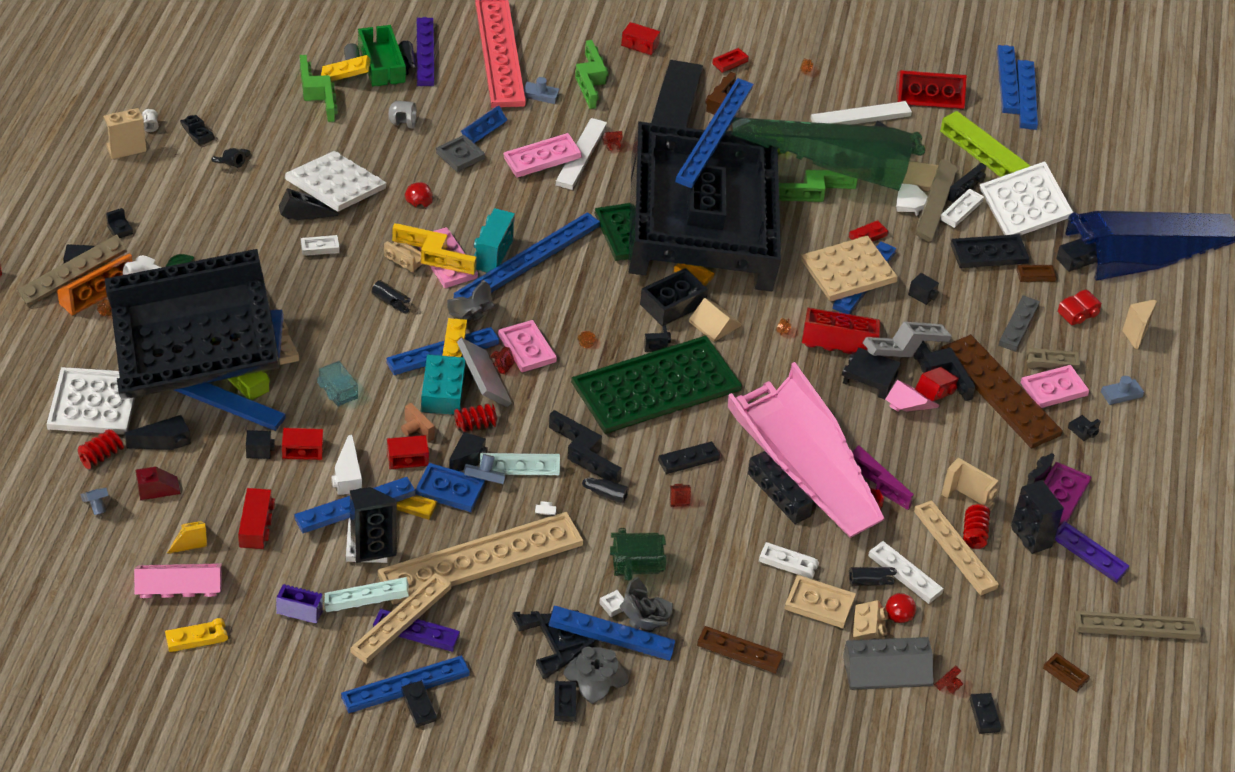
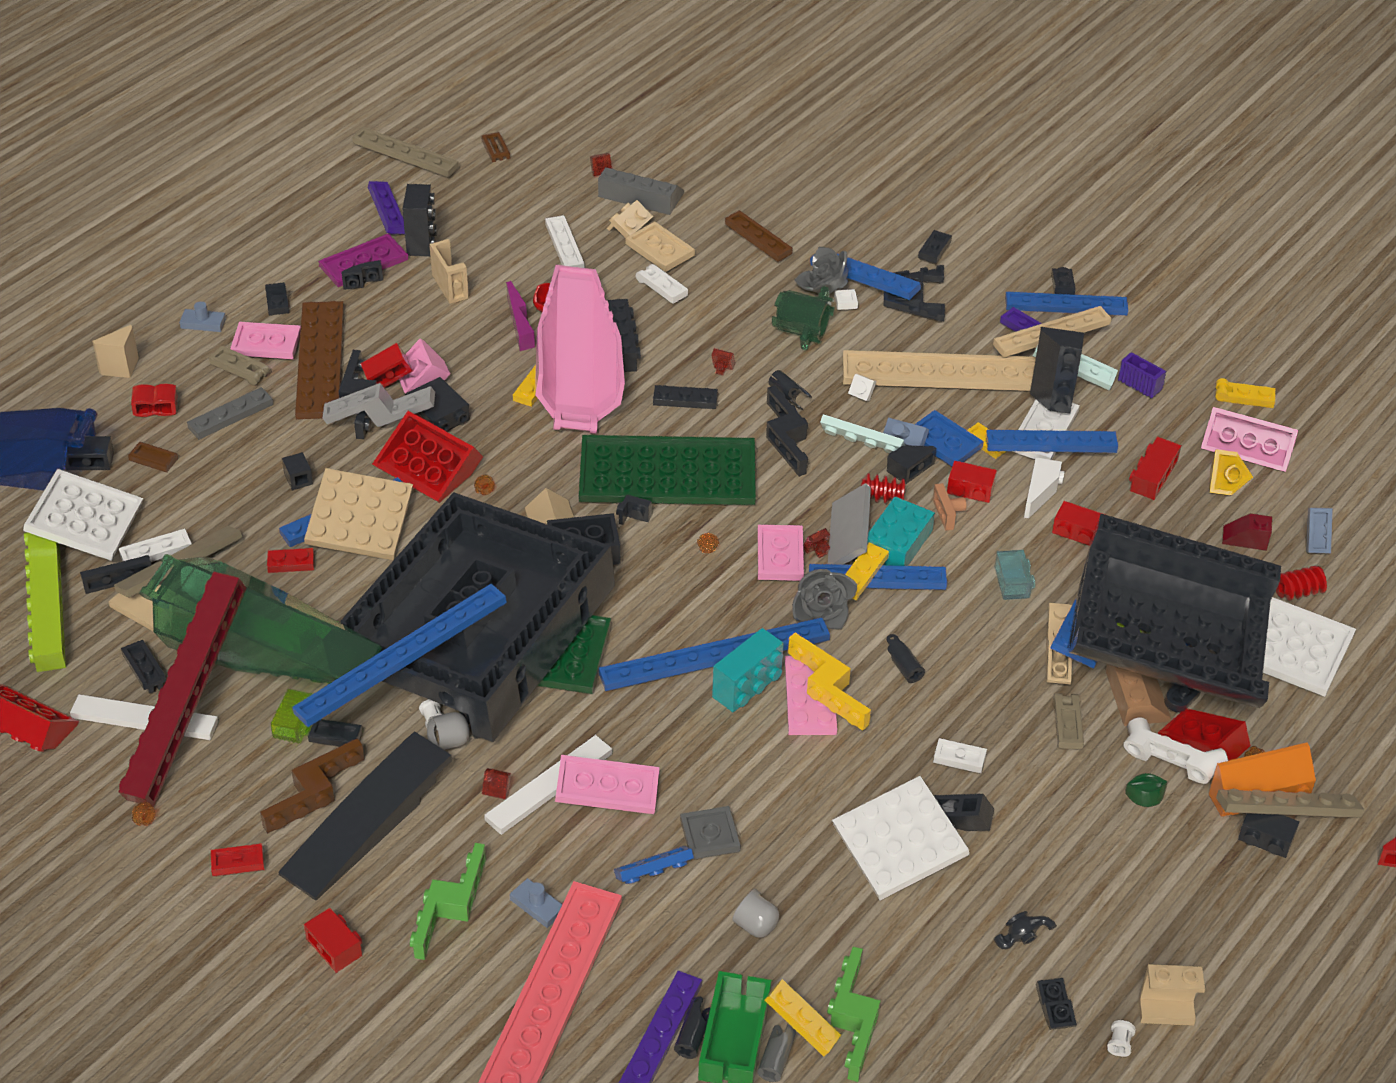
camera: 150 degrees left, 0 degrees up
(118, 224) = (1209, 875): black bracket -> none
(403, 255) = (866, 694): tan bracket -> none
(418, 194) = (798, 789): red hair -> none
(596, 672) = (896, 252): dark grey brick -> none
(839, 99) = (182, 689): none -> dark red brick
(871, 576) = (599, 249): black piece -> none
(901, 608) = (592, 223): red hair -> none
(956, 548) = (501, 247): tan plate -> none
(976, 526) = (470, 250): red piece -> none
(985, 713) = (589, 143): black plate -> none
(989, 251) = (180, 490): black plate -> none

